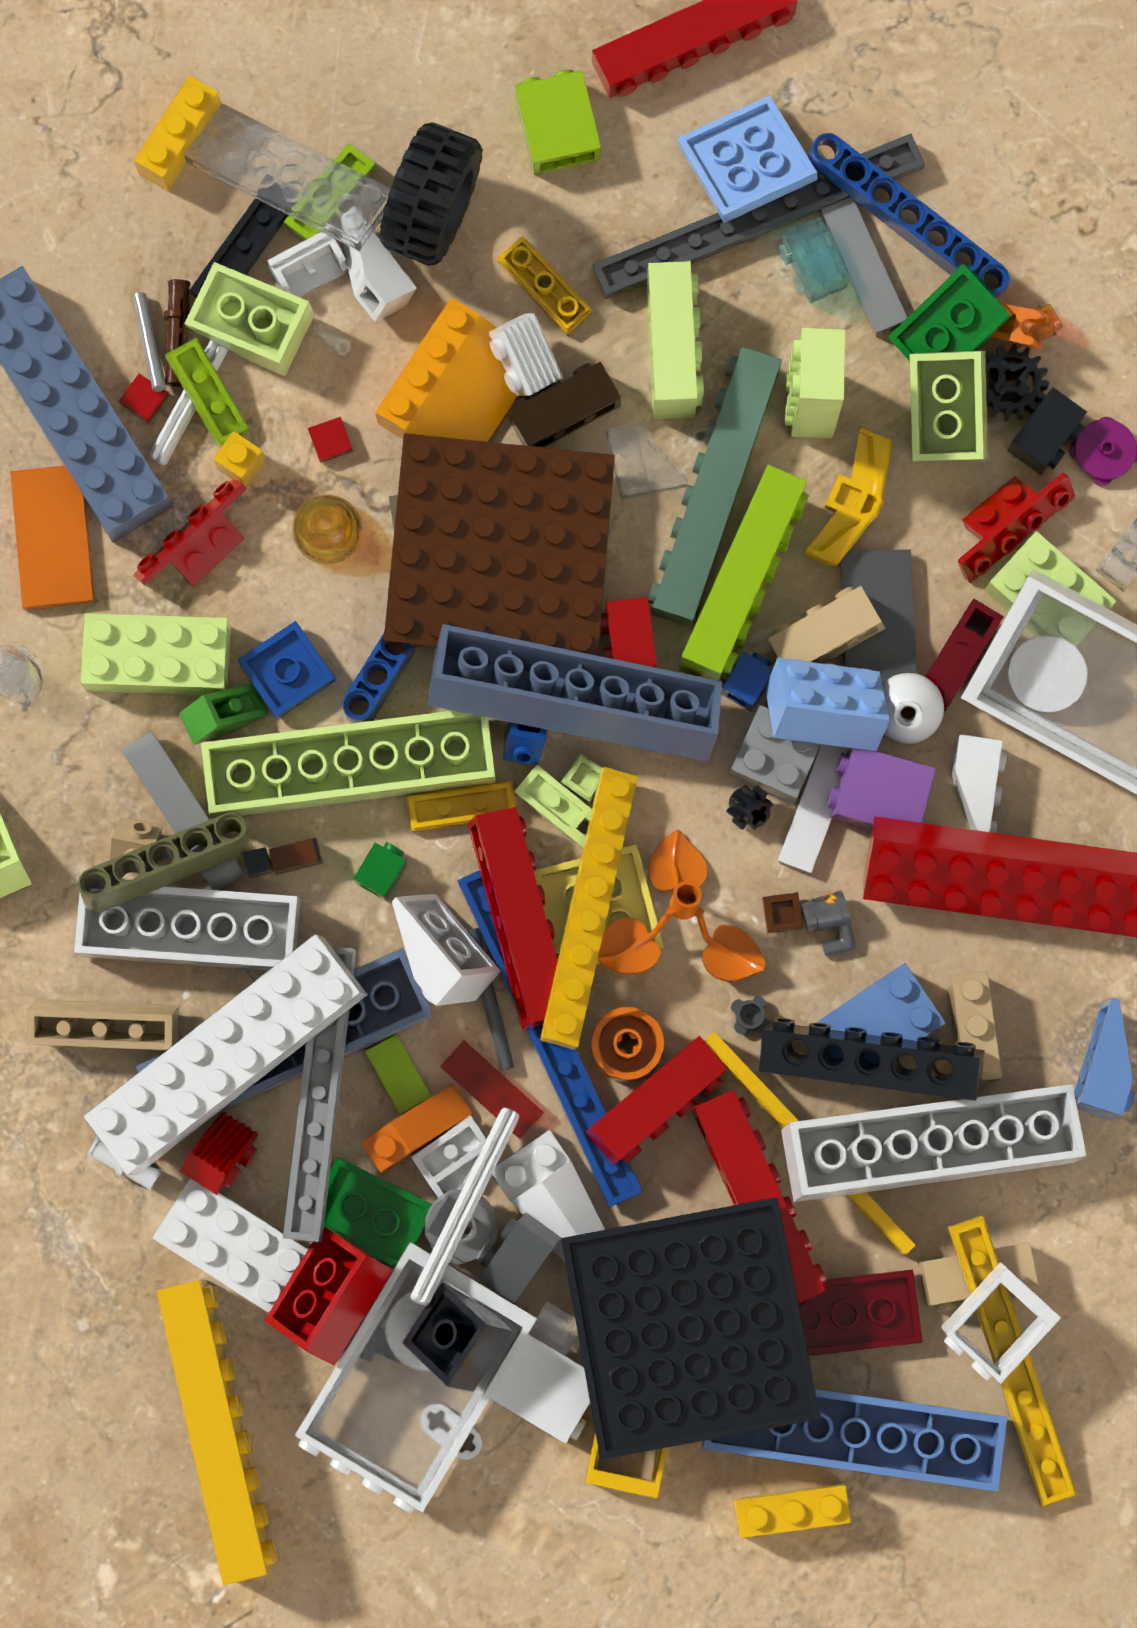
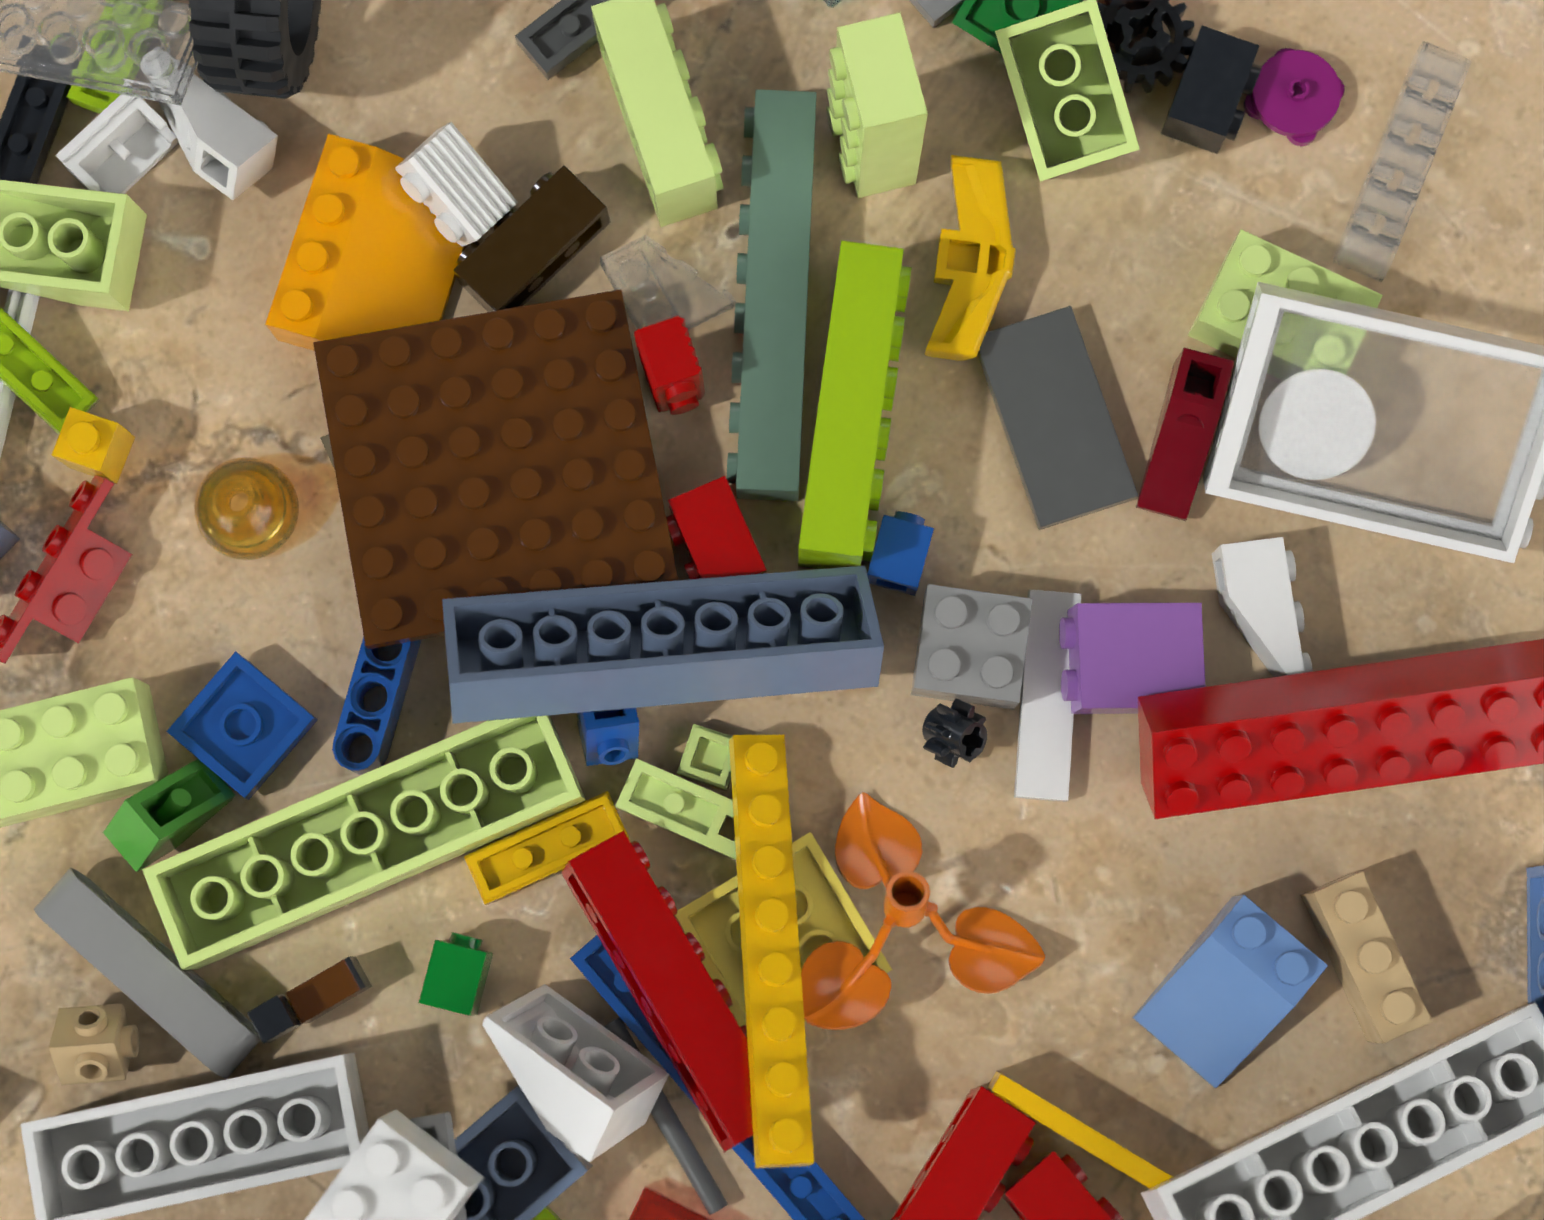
camera: 15 degrees left, 0 degrees up
(174, 847) = (106, 1066): olive beam -> none
(330, 439) = (216, 381): red tile -> none
(558, 299) = (478, 100): yellow tile -> none
(633, 514) = (670, 365): none -> red brick
(638, 1027) = (871, 1158): orange brick -> none
(741, 1009) = (1047, 1015): dark grey plate -> none
(780, 1058) = (1267, 1066): black brick -> none
(782, 912) = (1045, 869): reddish brown plate -> none
(827, 704) = (1023, 556): light blue brick -> none
(827, 913) = (1110, 851): flat silver piece -> none
(828, 628) = (989, 453): tan brick -> none
(923, 697) = (1120, 510): white piece -> none
(1008, 519) = (1192, 226): red bracket -> none

